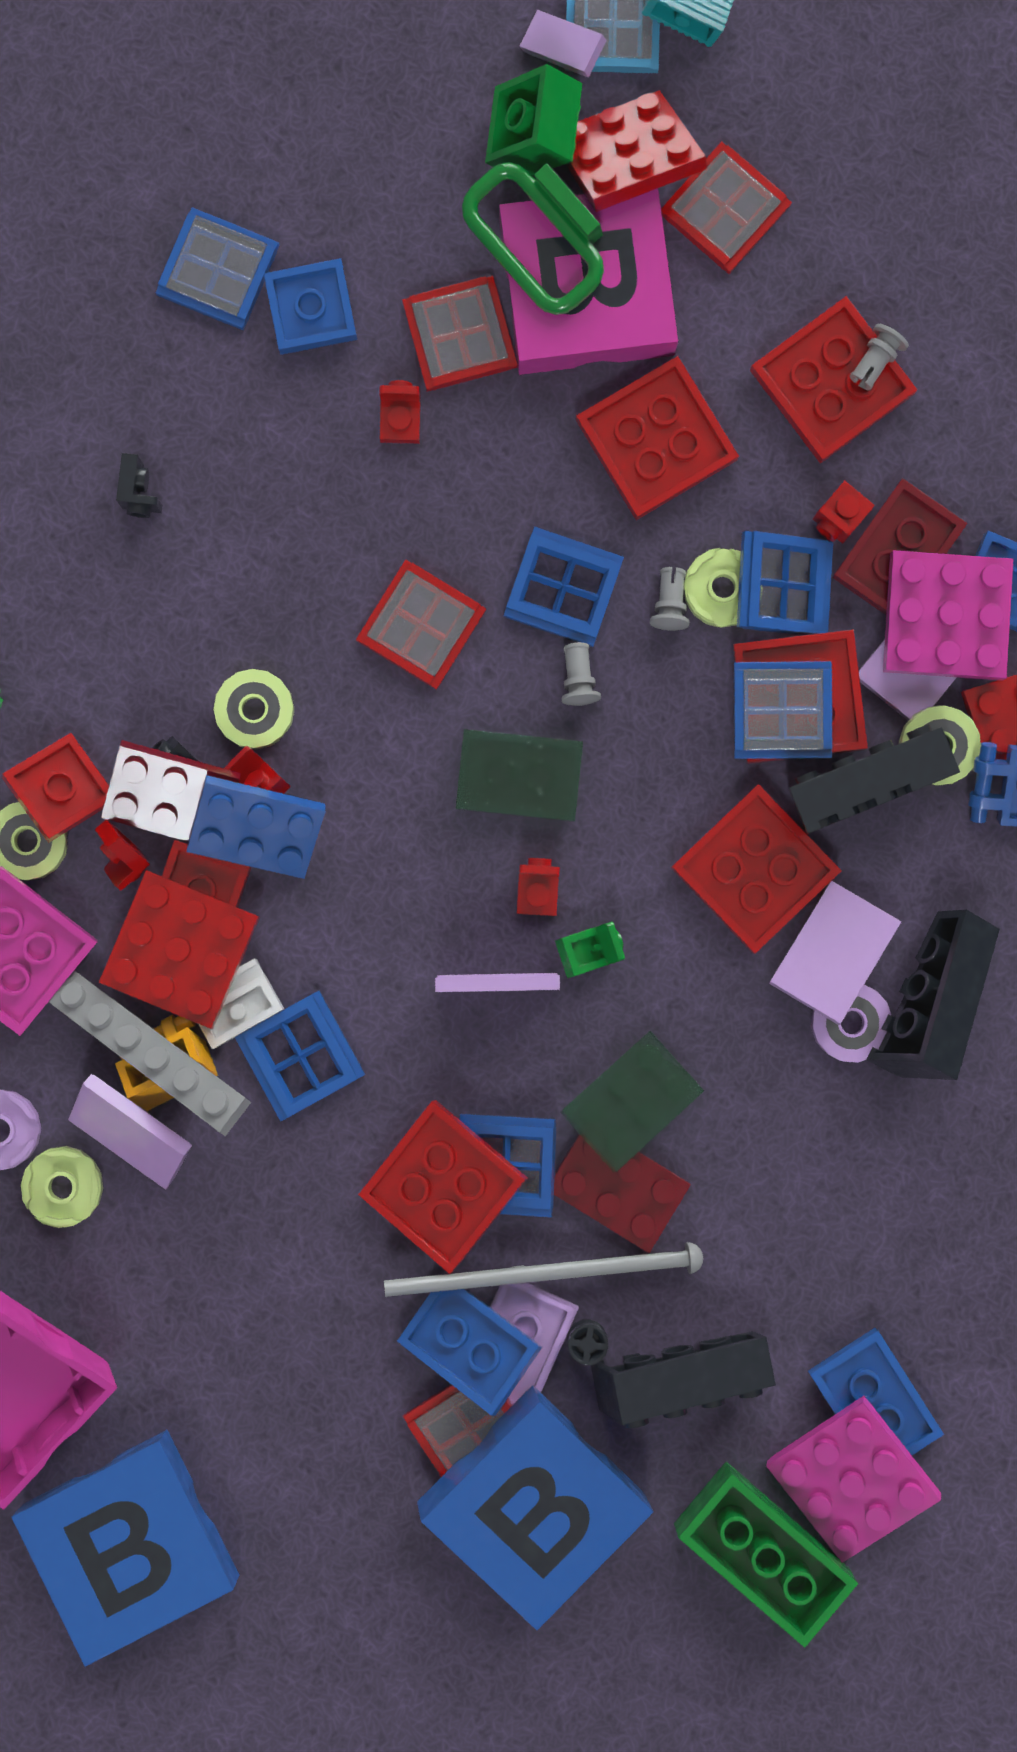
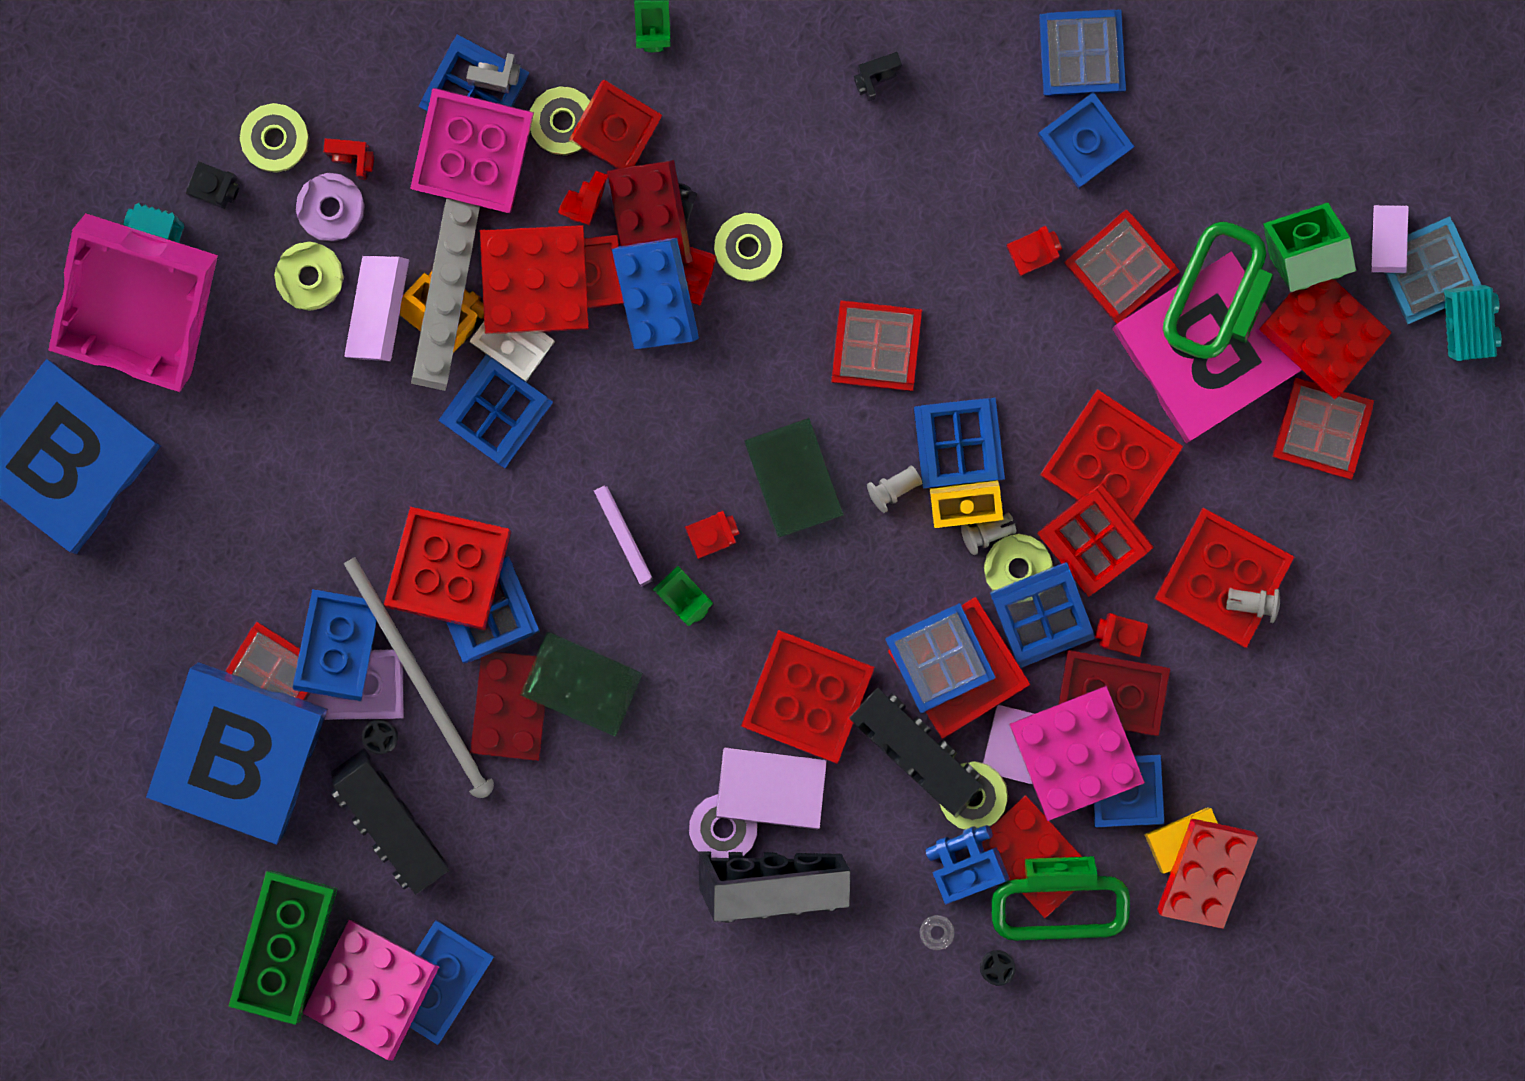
camera: 65 degrees right, 0 degrees up
(633, 606) = (966, 504): none -> yellow brick
(732, 491) = (1095, 539): none -> red piece

